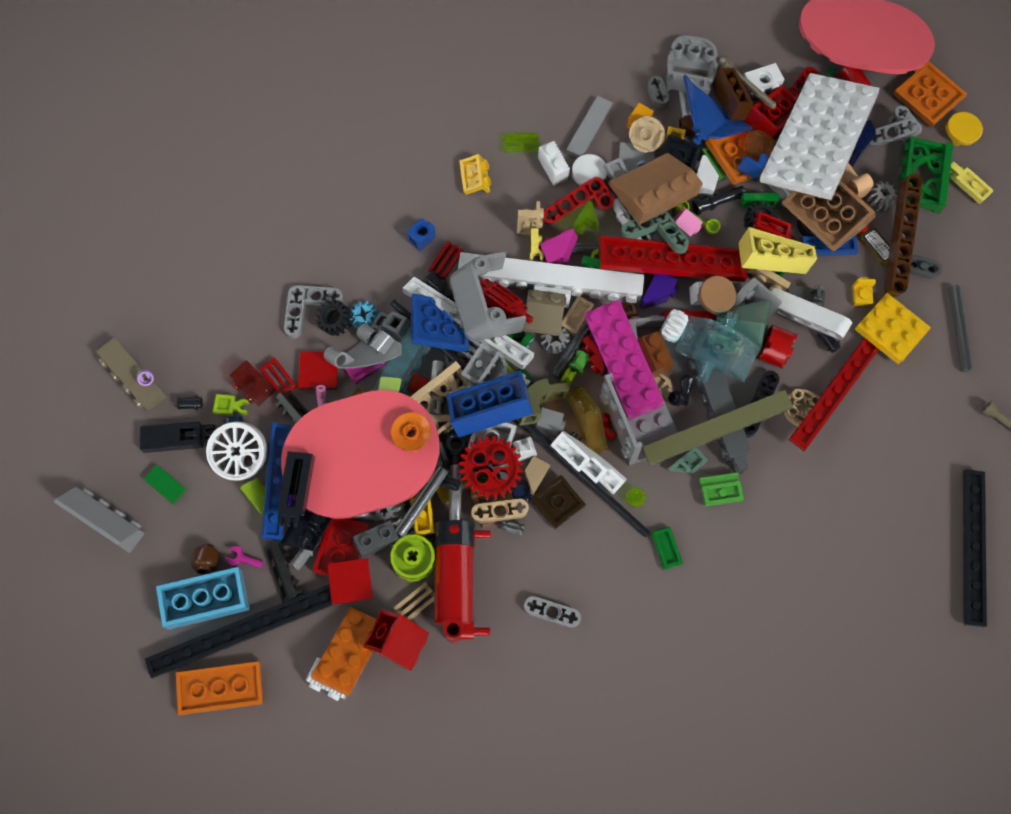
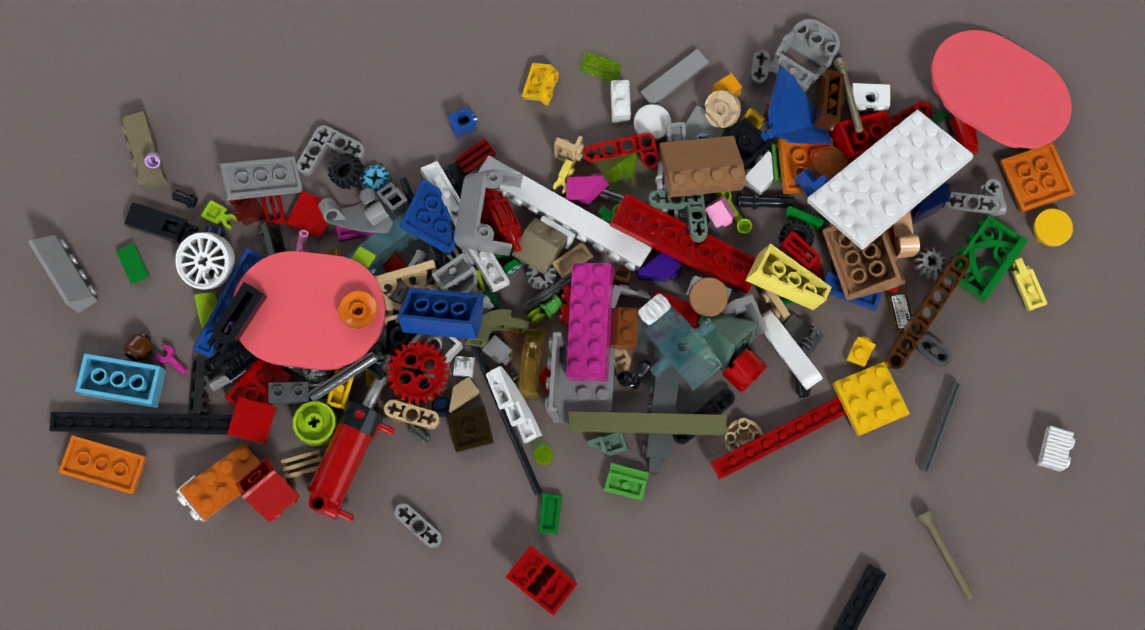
camera: 30 degrees right, 5 degrees up
(256, 354) = (260, 178): none -> light grey tile
(692, 611) = (541, 580): none -> red bracket

